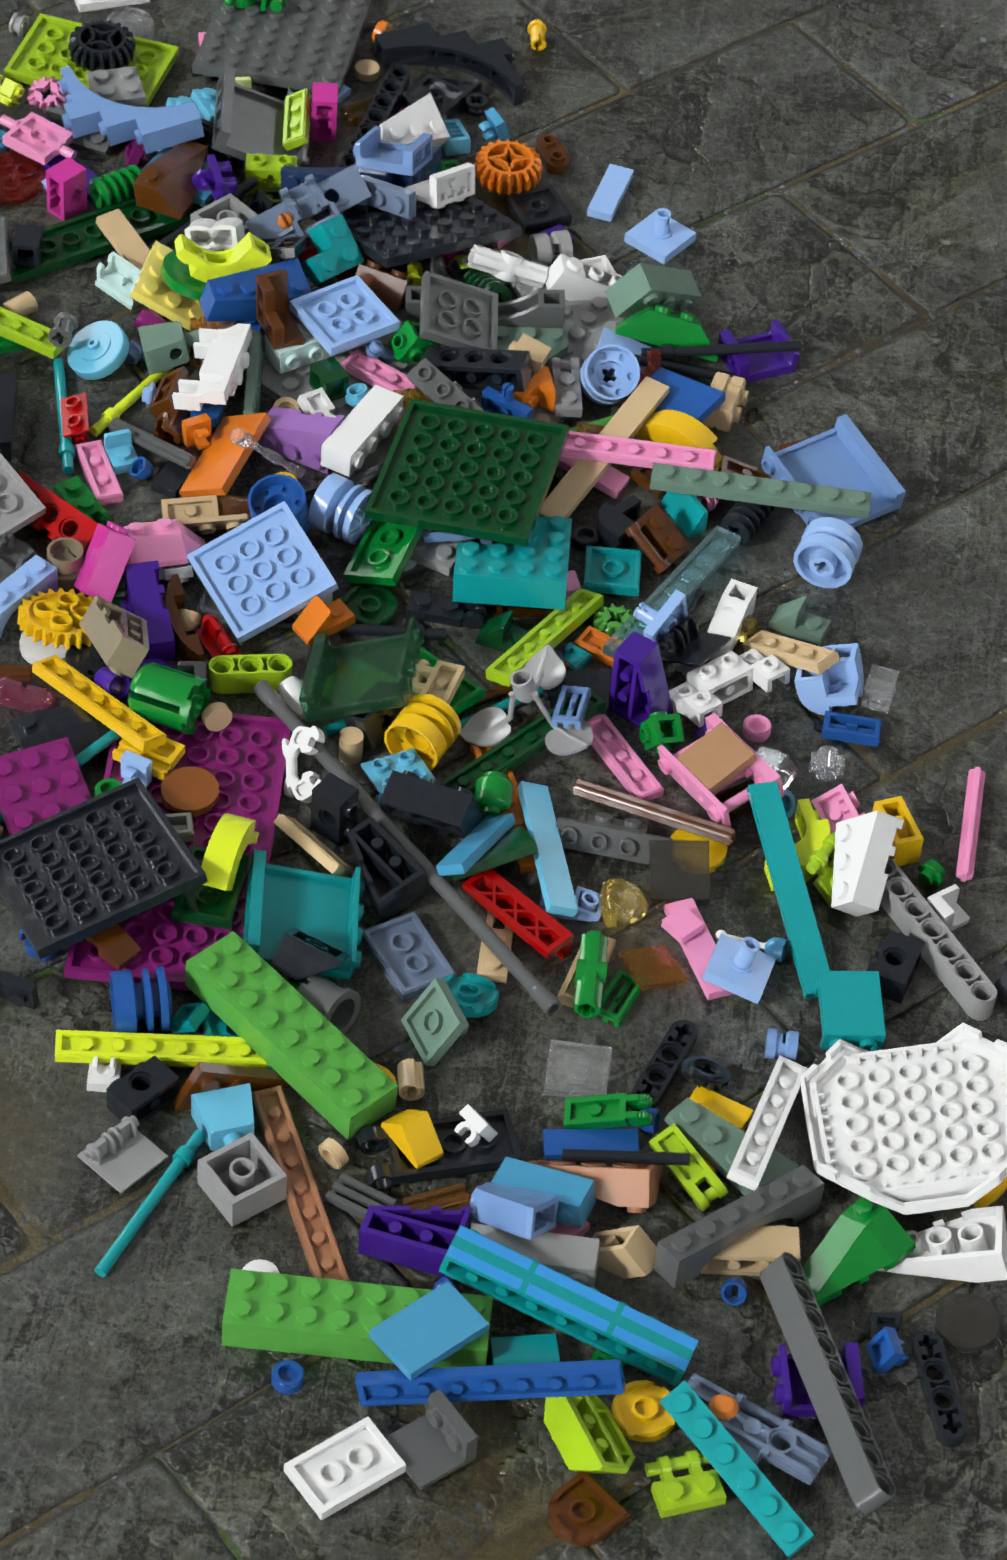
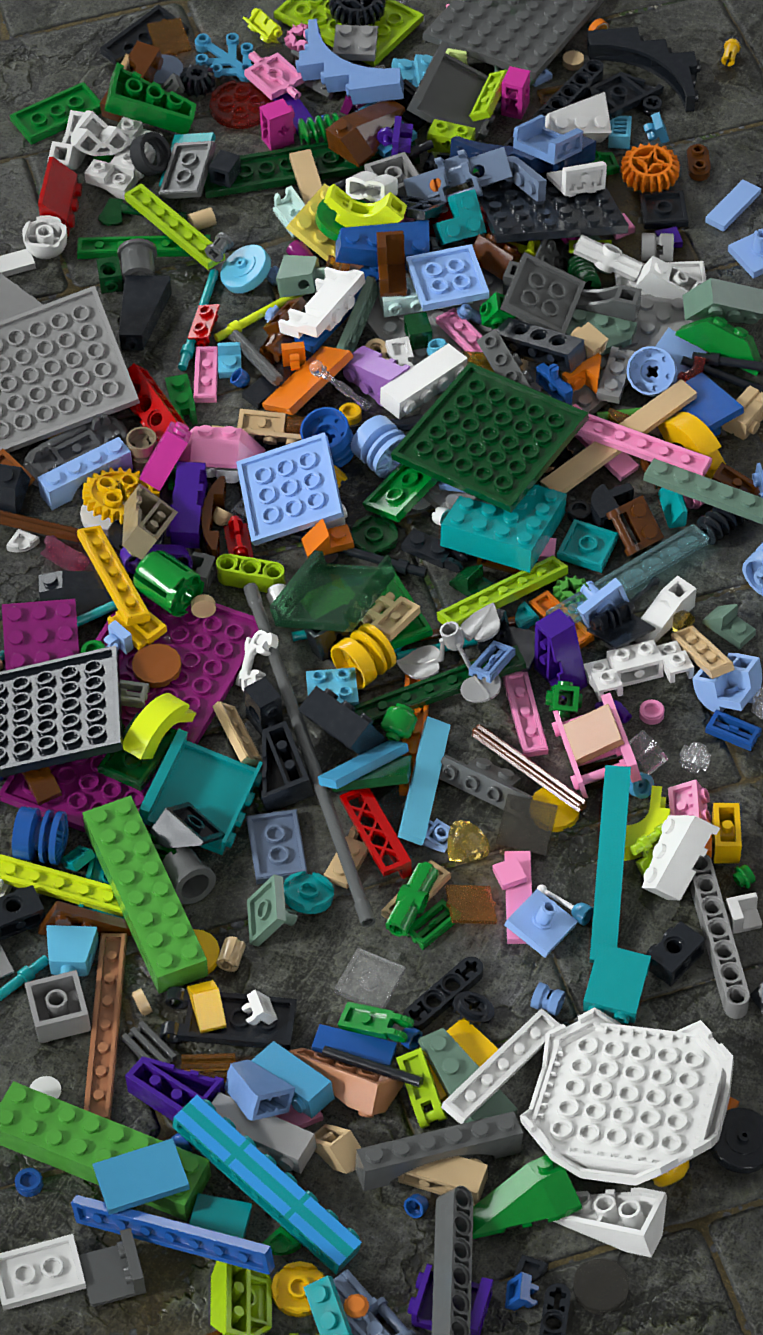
camera: 25 degrees right, 5 degrees up
(351, 745) = (304, 654): tan piece -> none
(438, 571) = (439, 515): none -> white hinge

